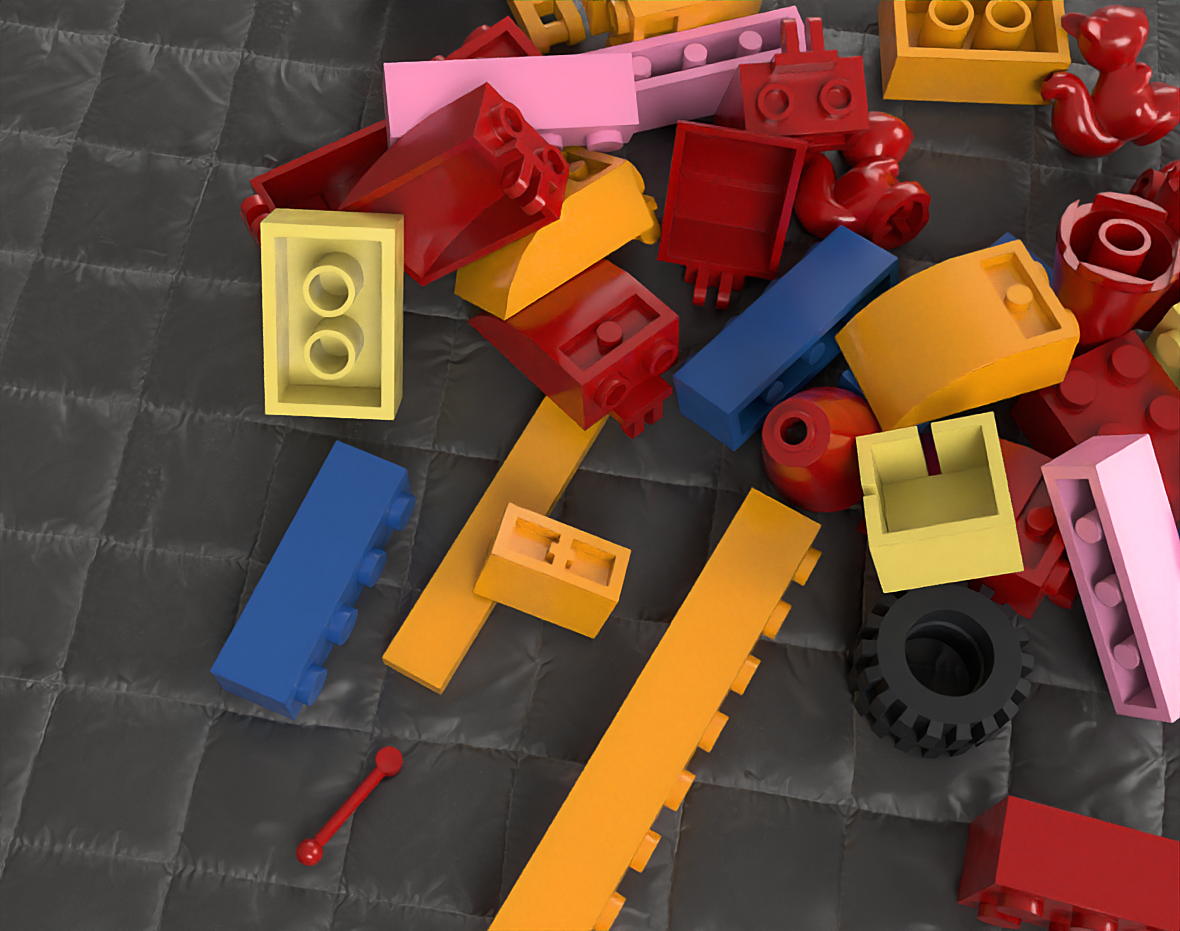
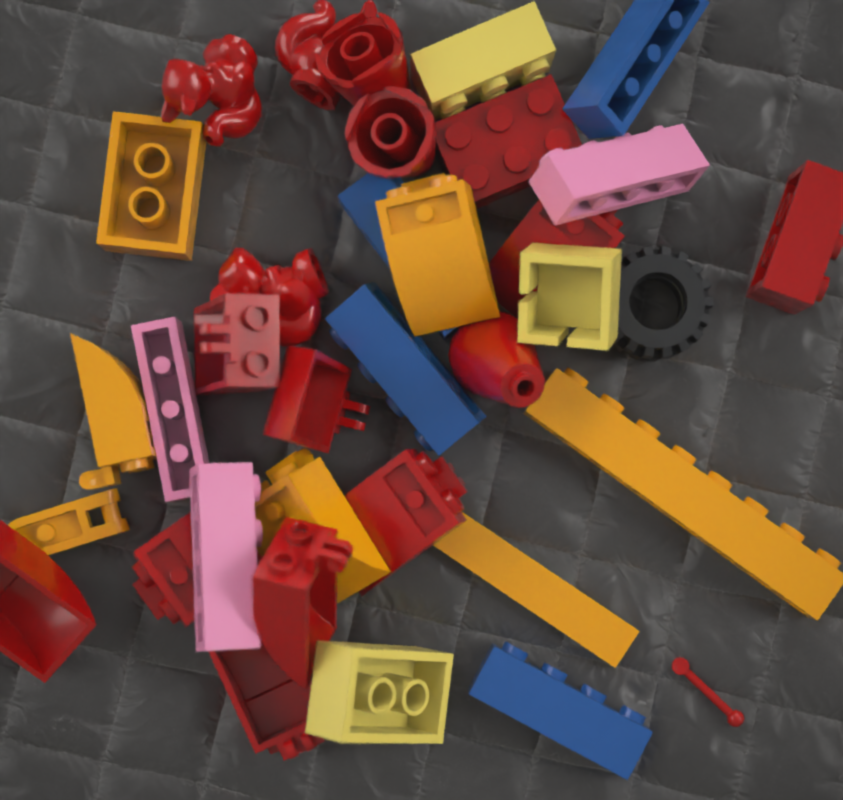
camera: 85 degrees left, 20 degrees up
(552, 571) = (570, 550): light orange hinge -> none

